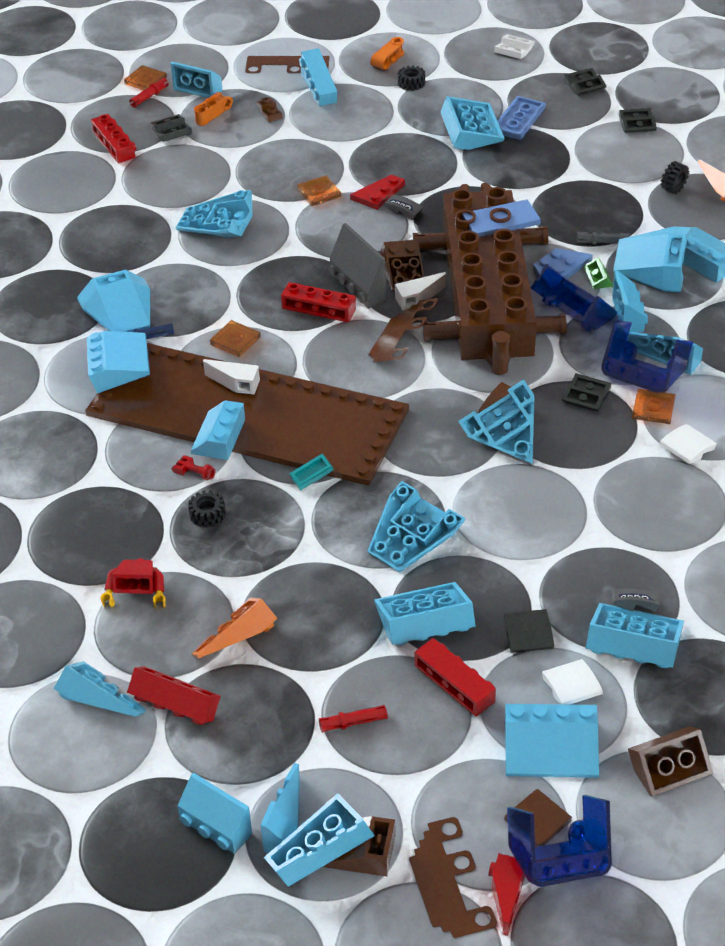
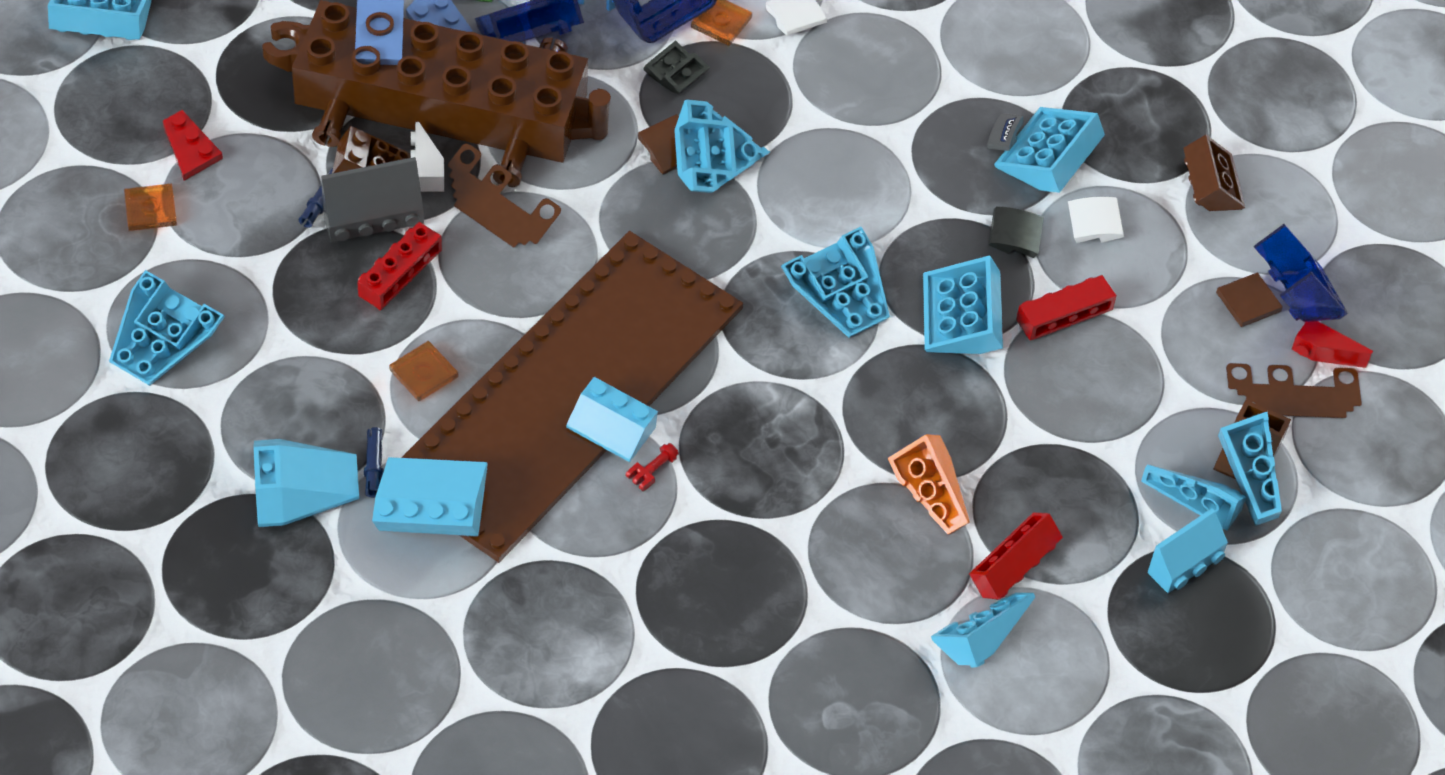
camera: 80 degrees left, 10 degrees up
(135, 578) = (828, 558): red torso -> none
(210, 516) = (730, 455): black tyre -> none
(235, 376) = (524, 378): white slope -> none
(311, 472) = (709, 352): teal tile -> none
(349, 719) = (1088, 417): red pin -> none
(402, 204) = (237, 127): dark grey slope -> none
(551, 740) = (1165, 258): medium azure slope -> none

